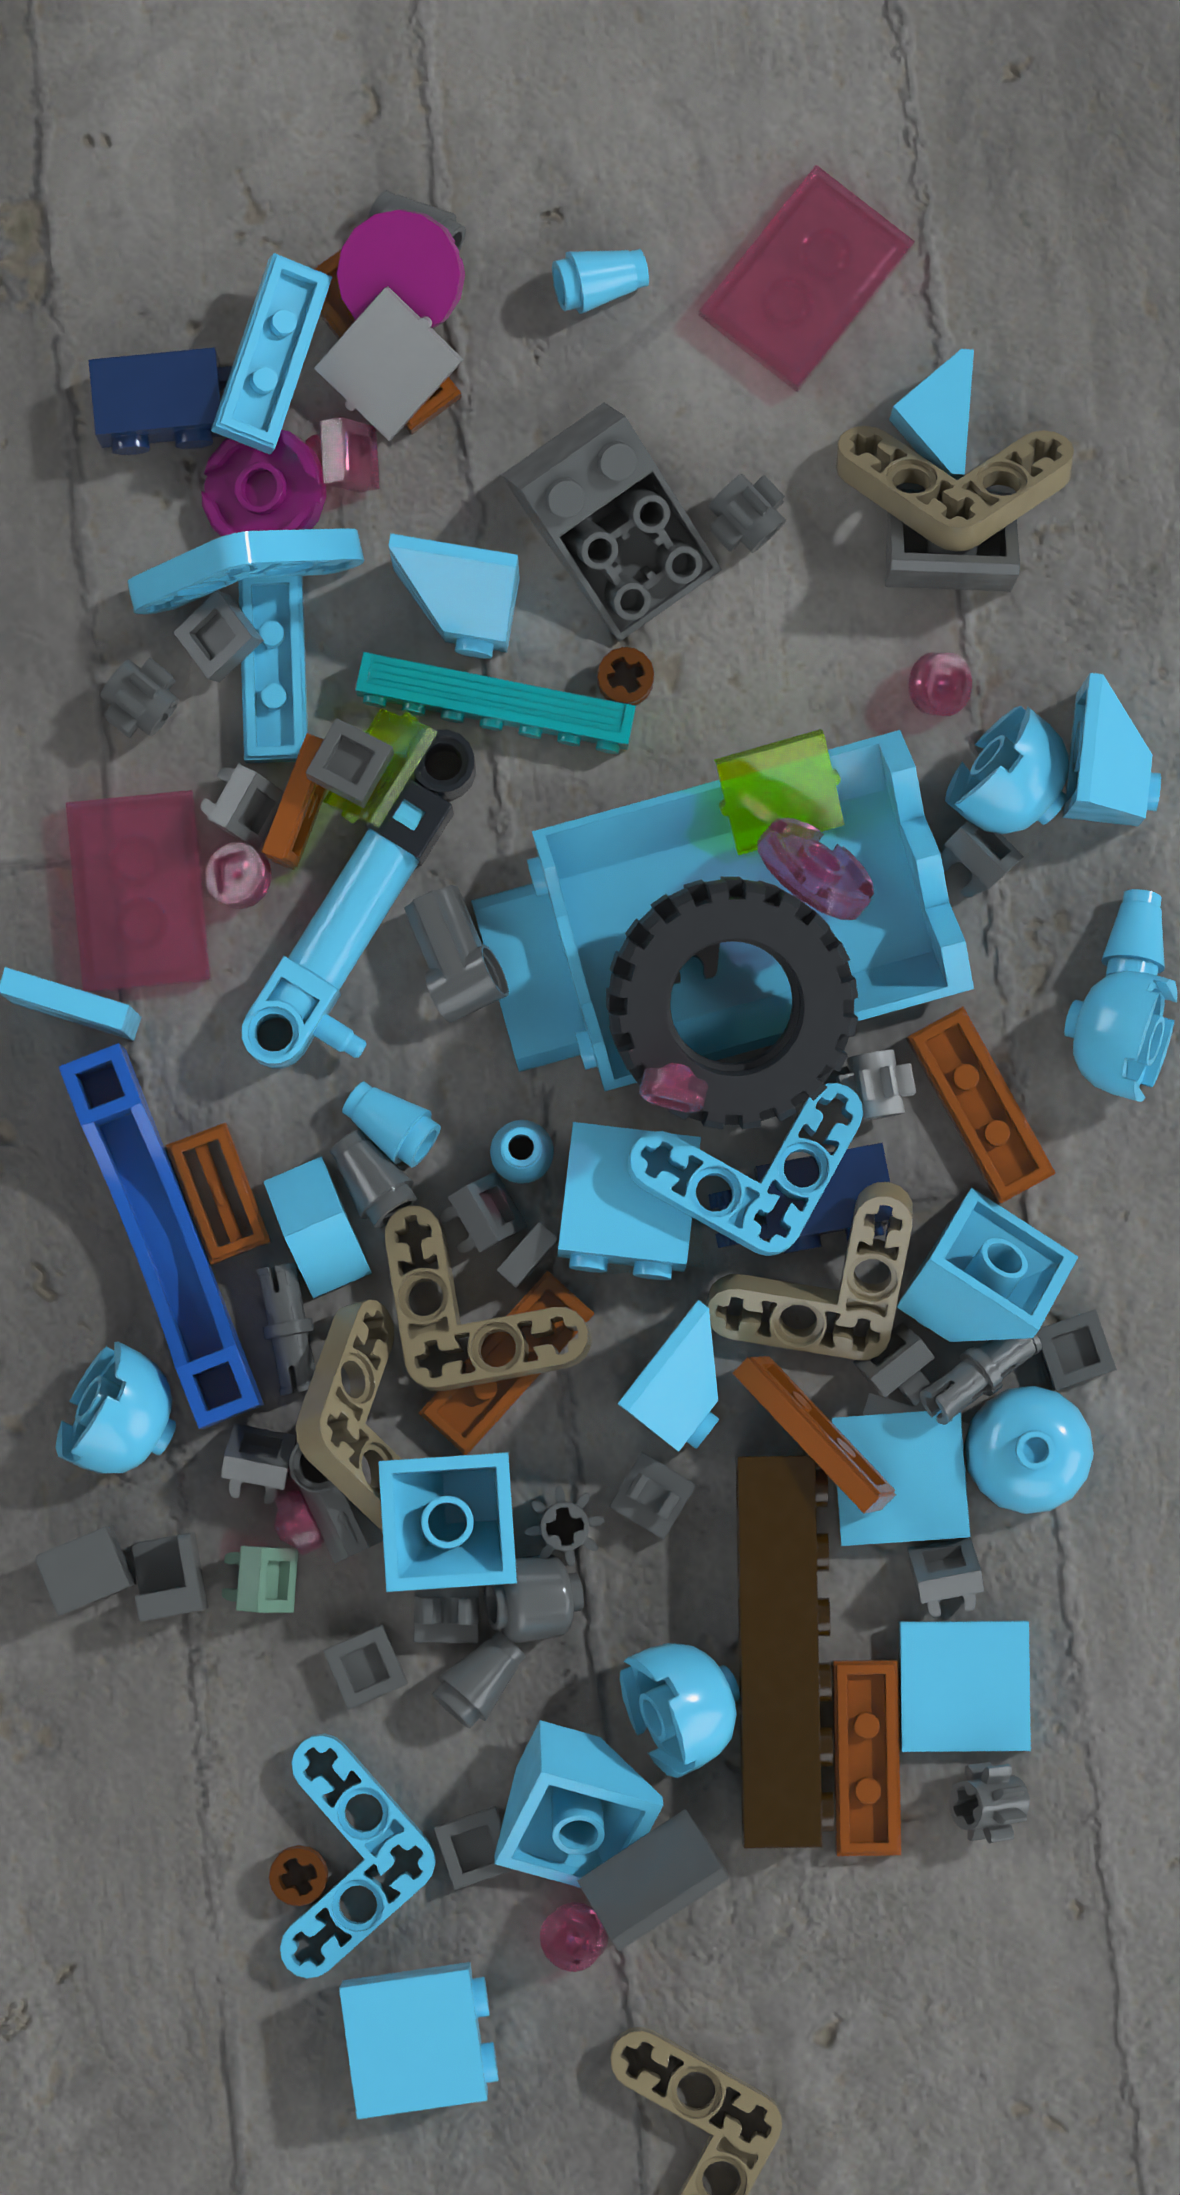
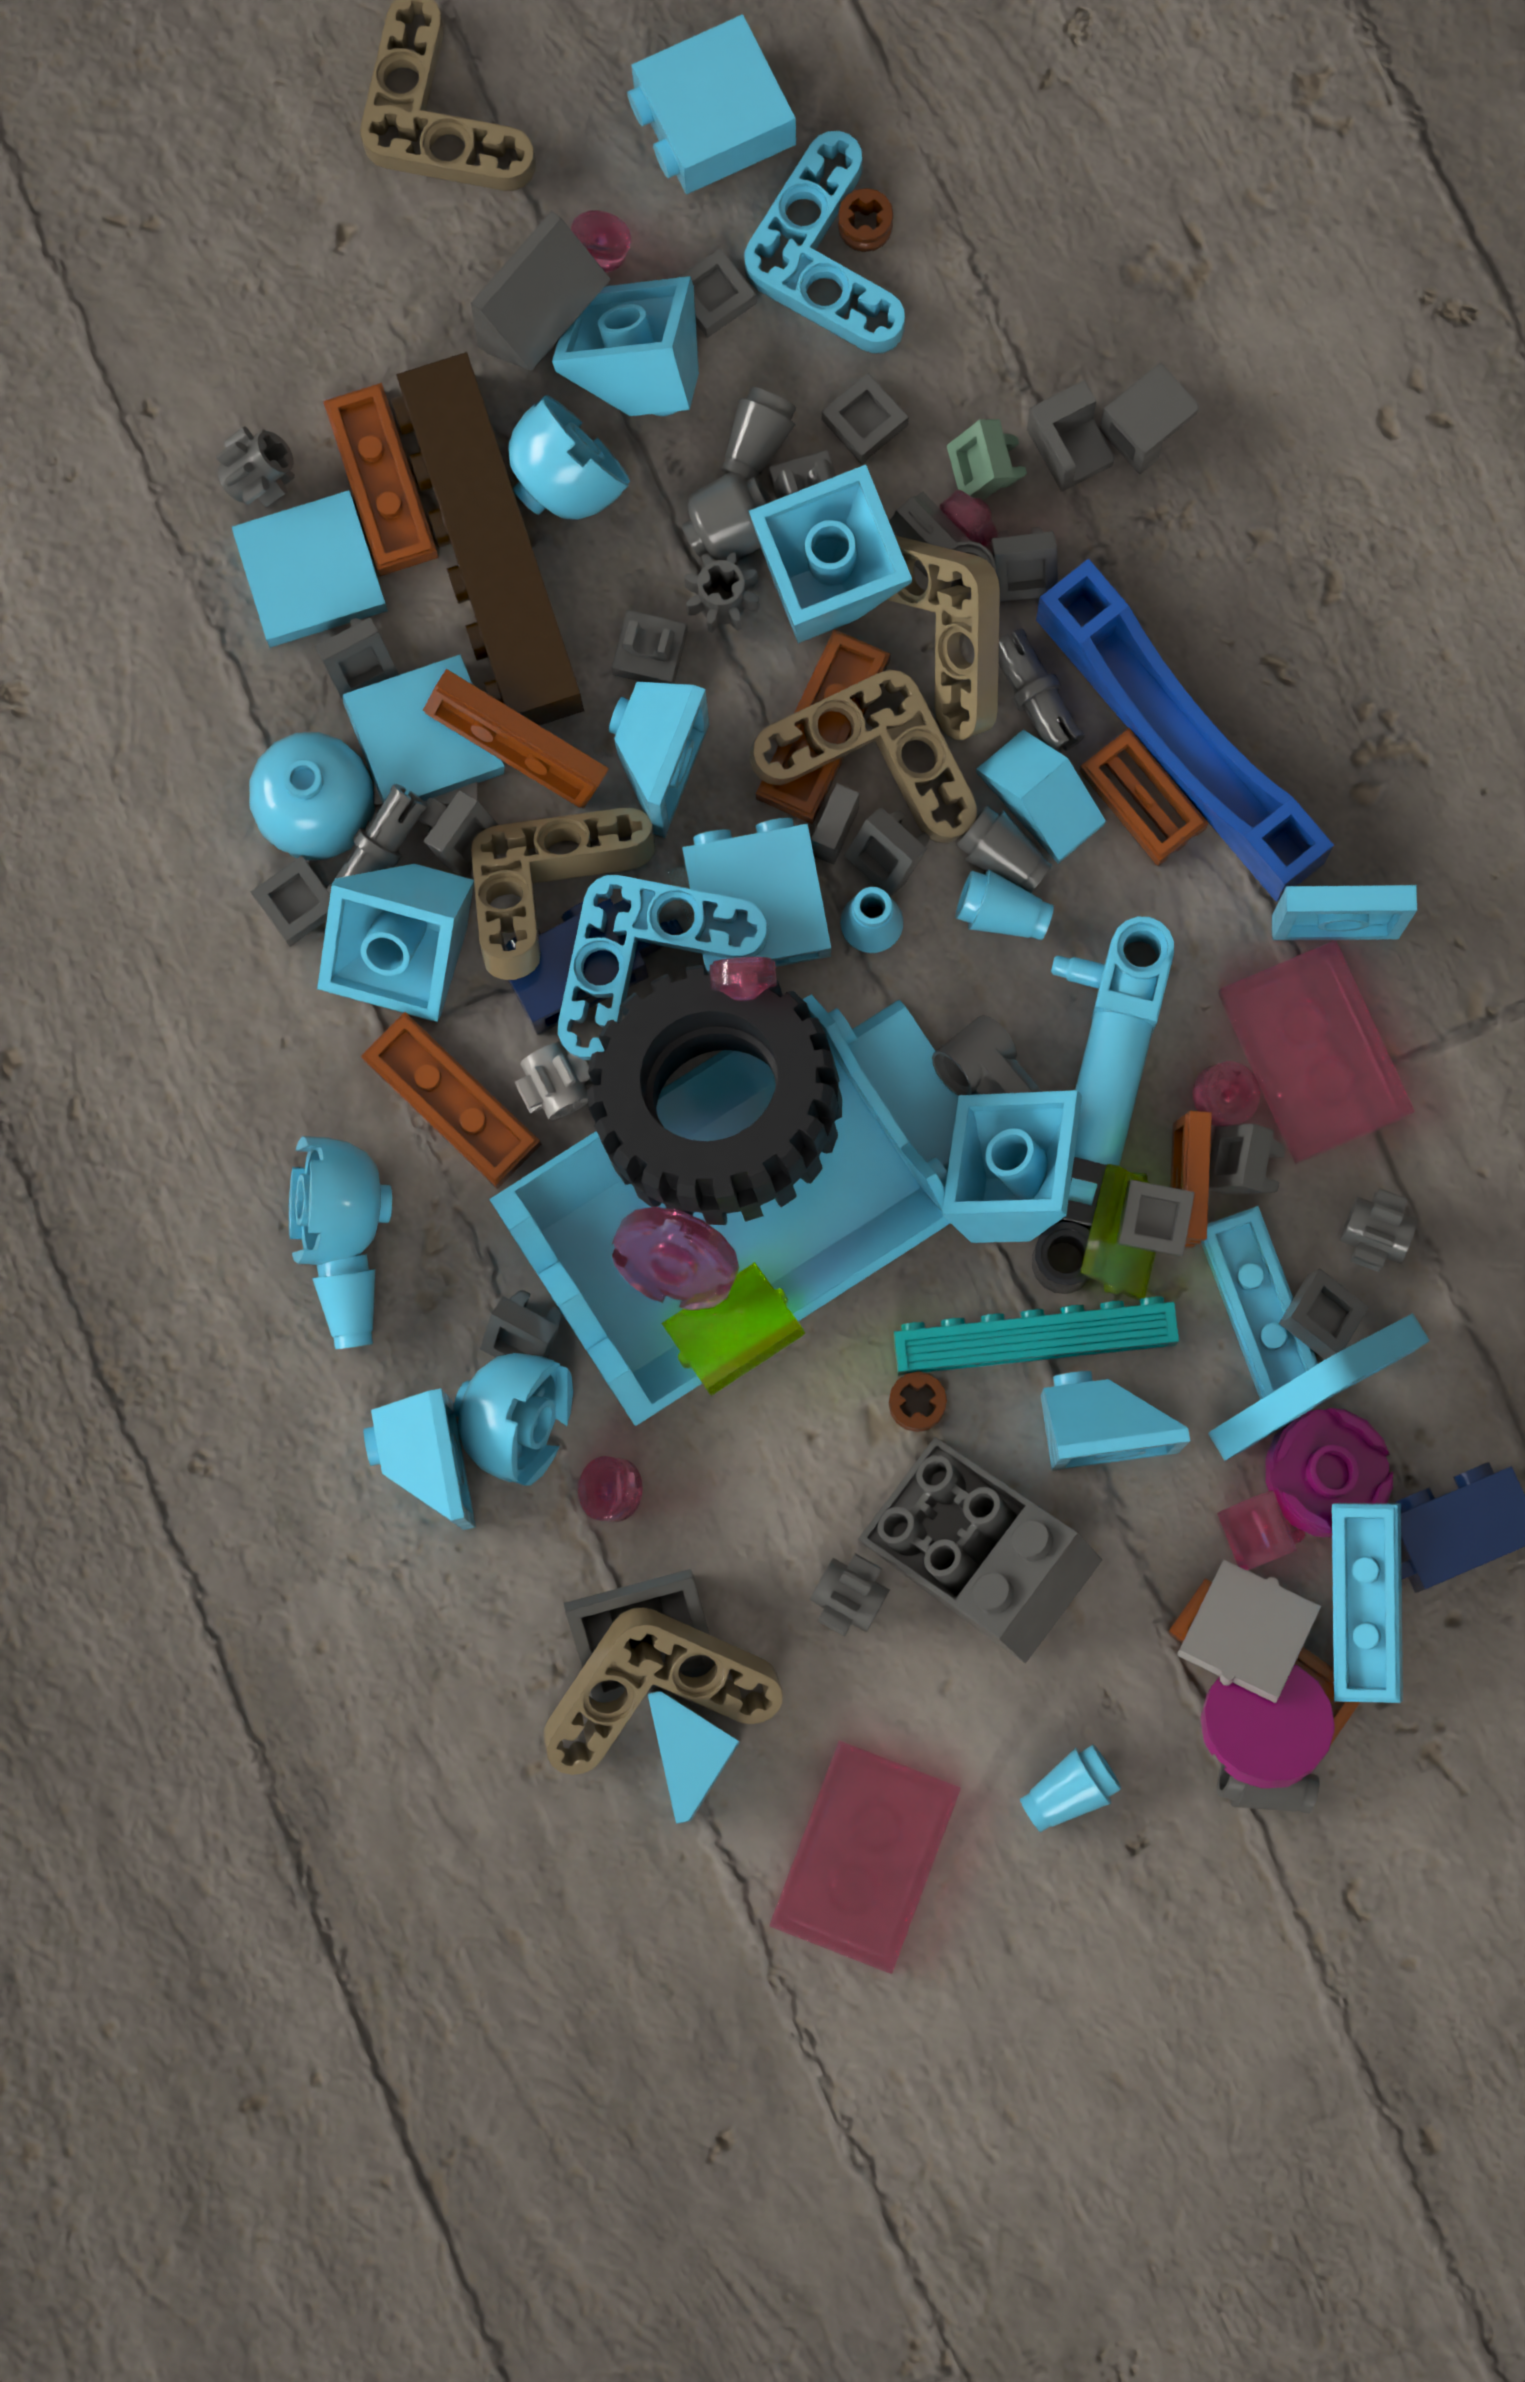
camera: 170 degrees right, 5 degrees down
(119, 1413) = (1167, 559): medium azure cylinder -> none
(466, 860) = (1011, 1164): none -> medium azure slope

